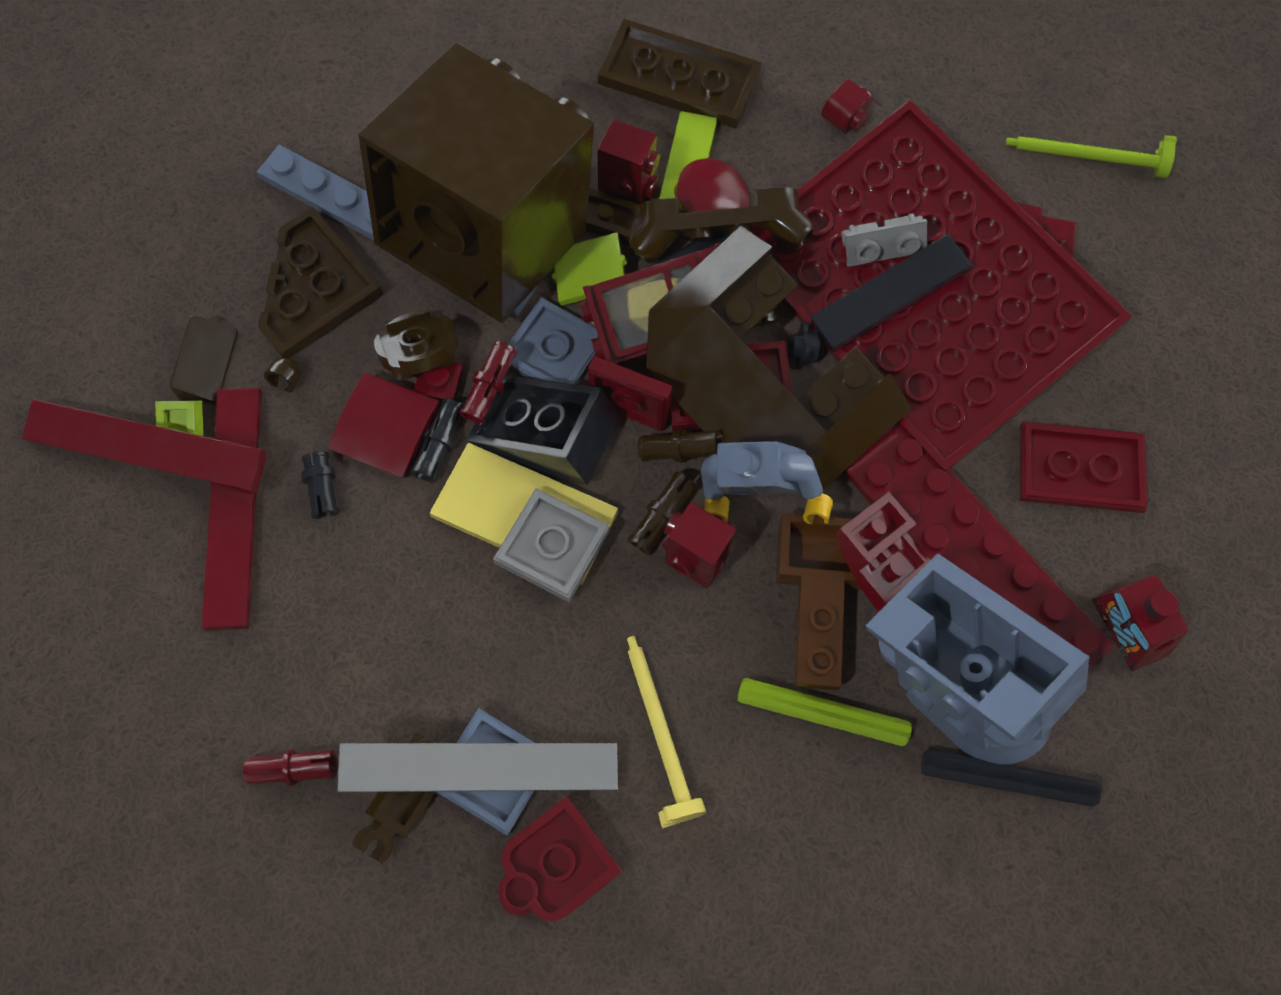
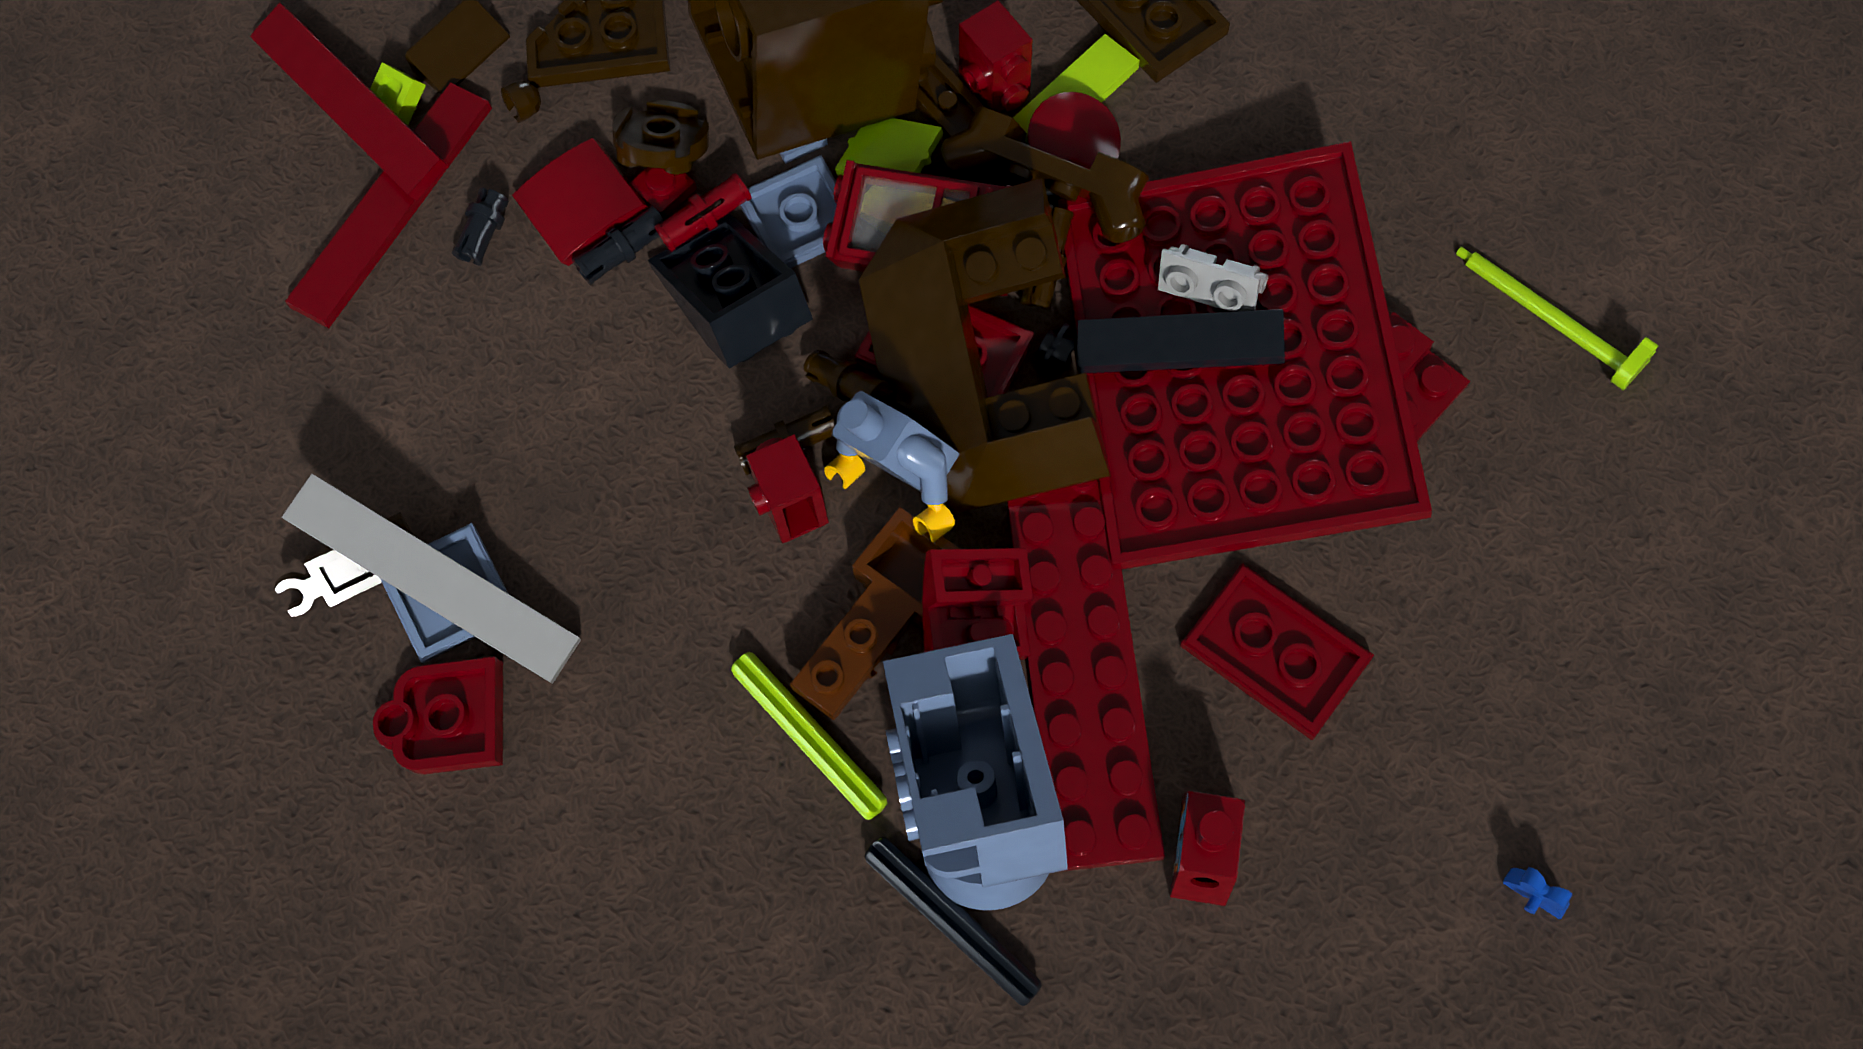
camera: 40 degrees right, 0 degrees up
(290, 767) = (269, 476): dark red axle -> none
(490, 493) = (655, 364): light yellow tile -> none
(552, 544) = (653, 408): light grey tile -> none
(632, 393) = (827, 297): dark red tile -> none
(685, 807) = (603, 741): light yellow piece -> none
(847, 106) = (1293, 119): dark red plate -> none

